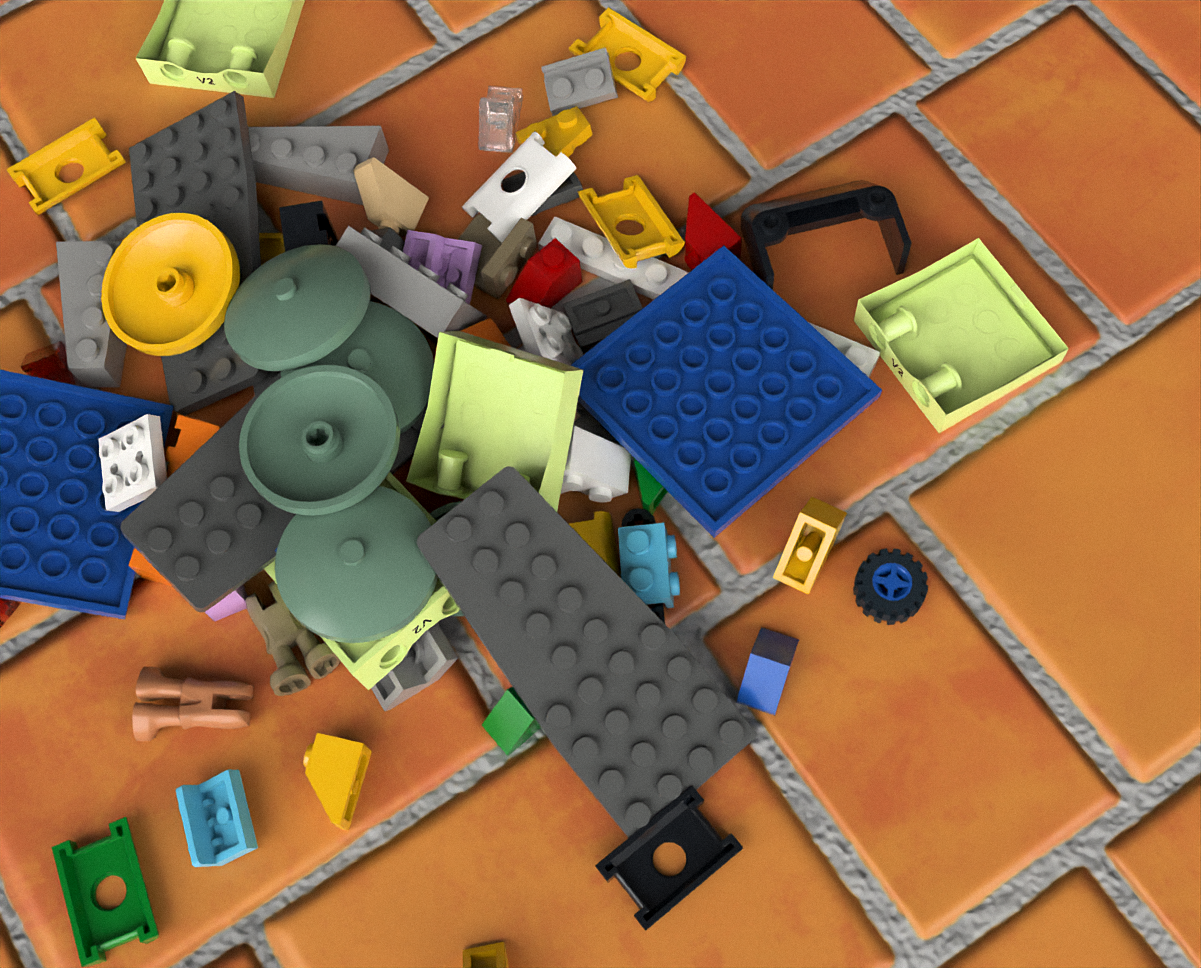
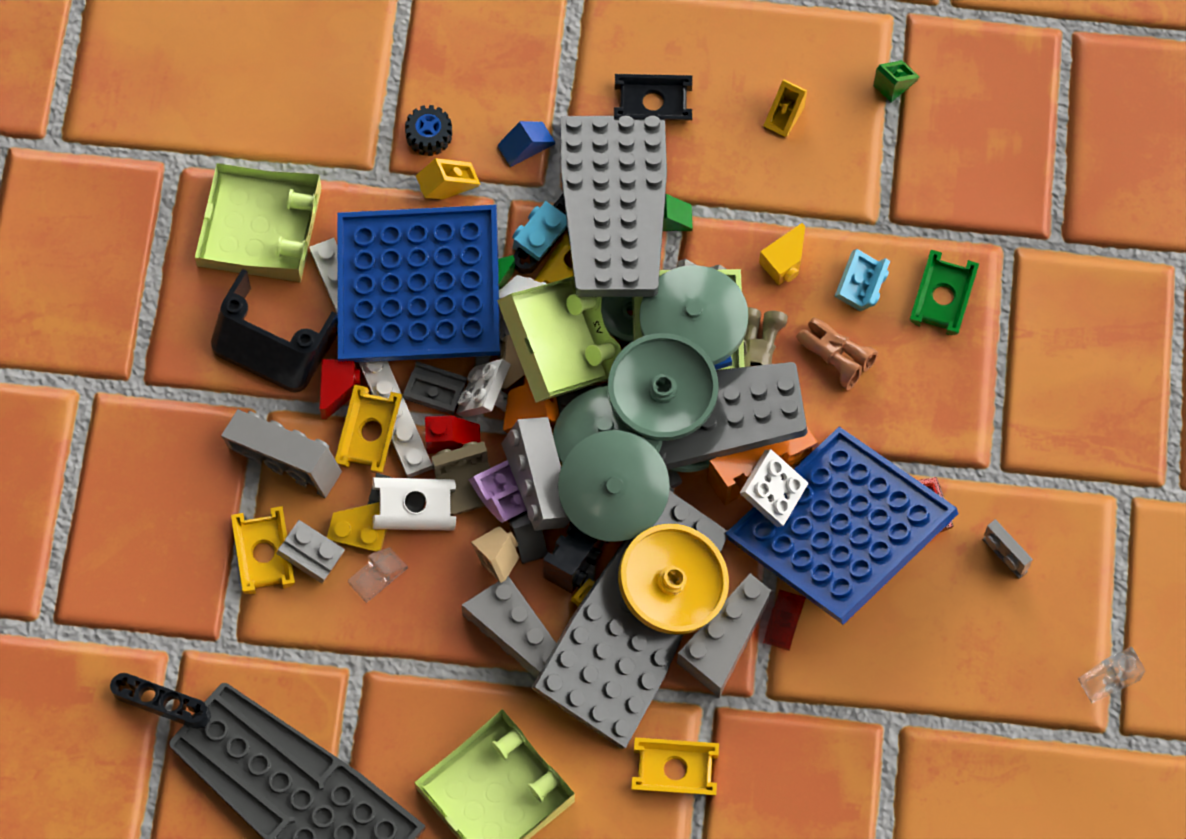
camera: 150 degrees left, 0 degrees up
(692, 135) = (283, 450): none -> light grey wedge

